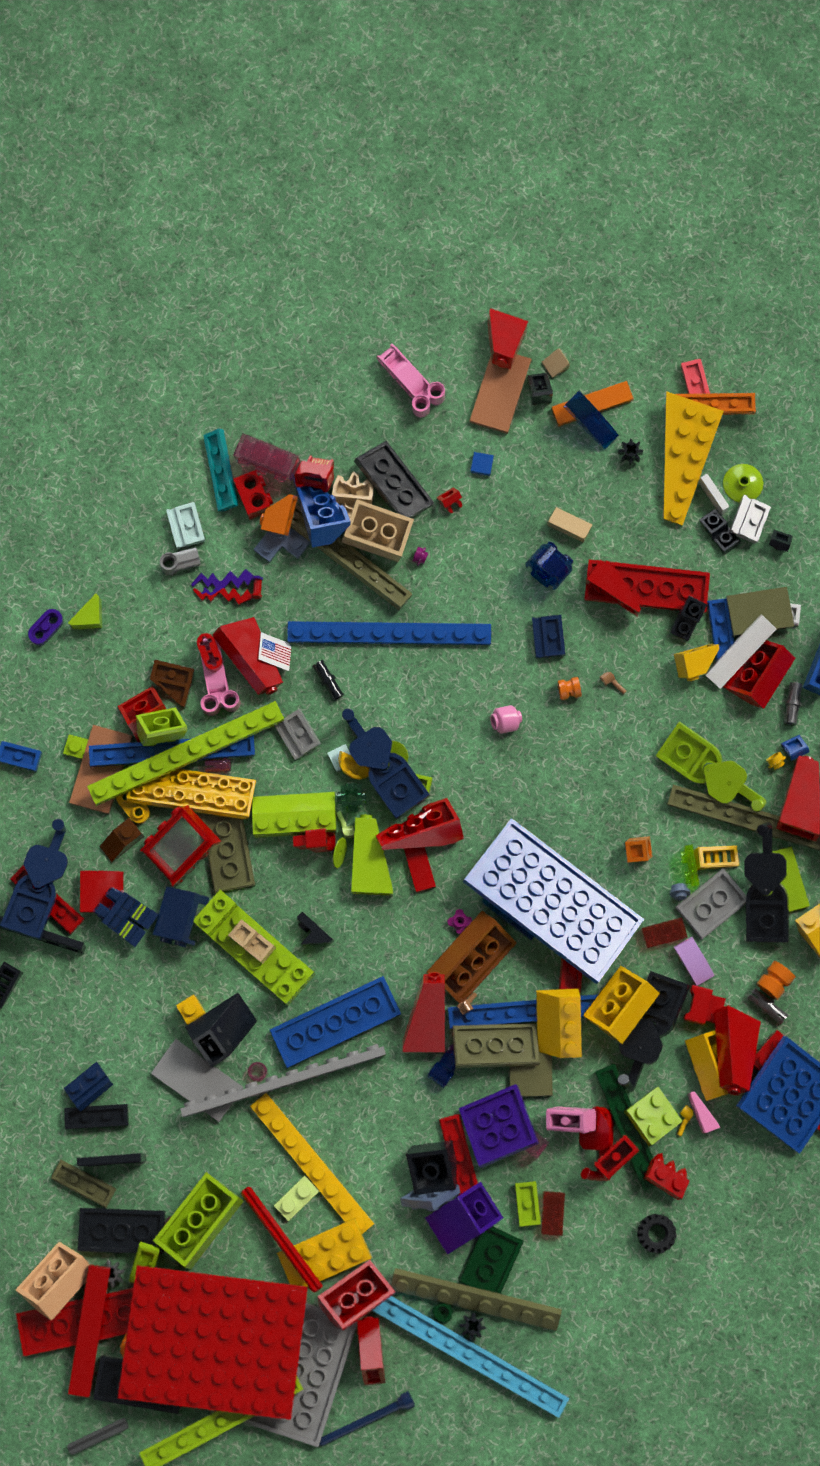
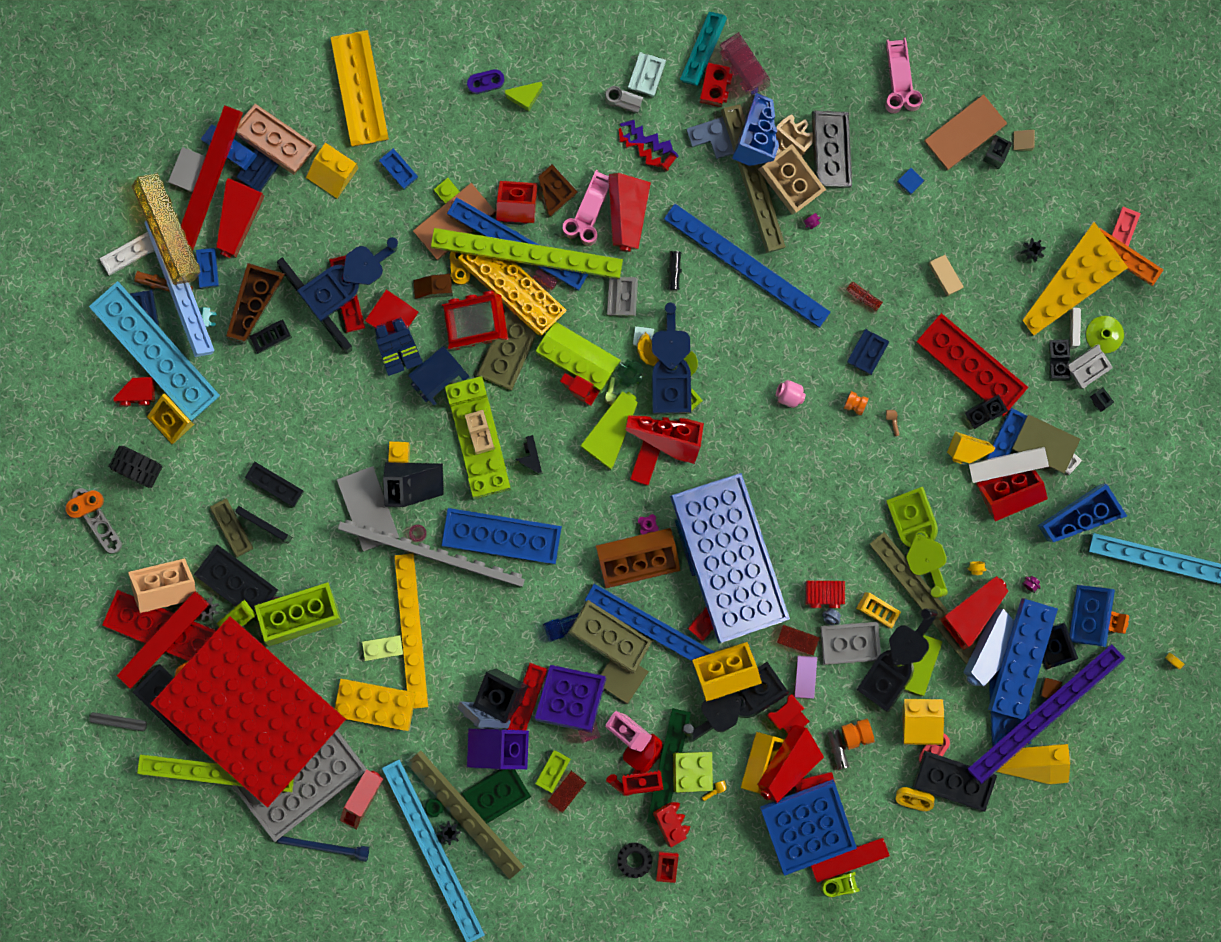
camera: 30 degrees right, 5 degrees up
(88, 1086) = (283, 457): dark blue plate -> none
(160, 727) = (520, 219): lime slope -> none
(205, 654) = (593, 185): red beam -> none
(274, 651) = (648, 220): sticker -> none
(279, 516) = (723, 116): orange slope -> none
(281, 1239) = (350, 671): red axle -> none
(315, 473) = (774, 101): red piece -> none
(339, 852) = (592, 409): lime piece -> none
(355, 1295) = (376, 750): red slope -> none
(427, 1020) = (572, 581): red slope -> none
(450, 497) = (866, 190): red tile -> none
(465, 1006) = (608, 591): medium nougat hand -> none
(505, 337) = (998, 93): red slope -> none
(511, 590) = (864, 296): none -> clear red axle
(549, 565) = (907, 297): clear blue brick -> none
(559, 1022) = (670, 652): yellow slope -> none
(591, 420) = (1019, 204): clear blue slope -> none
(601, 399) = (1030, 191): orange tile -> none
(609, 583) = (943, 342): red slope -> none
(638, 849) = (822, 563): orange brick -> none
(659, 874) = (825, 593): none -> red brick
(688, 858) = (849, 610): clear neon green plate -> none
(690, 1218) = (667, 866): none -> red slope
(704, 1117) = (731, 797): bright pink slope -> none
(793, 703) = (1021, 532): flat silver pin -> none
(795, 747) = (998, 567): blue tile -> none

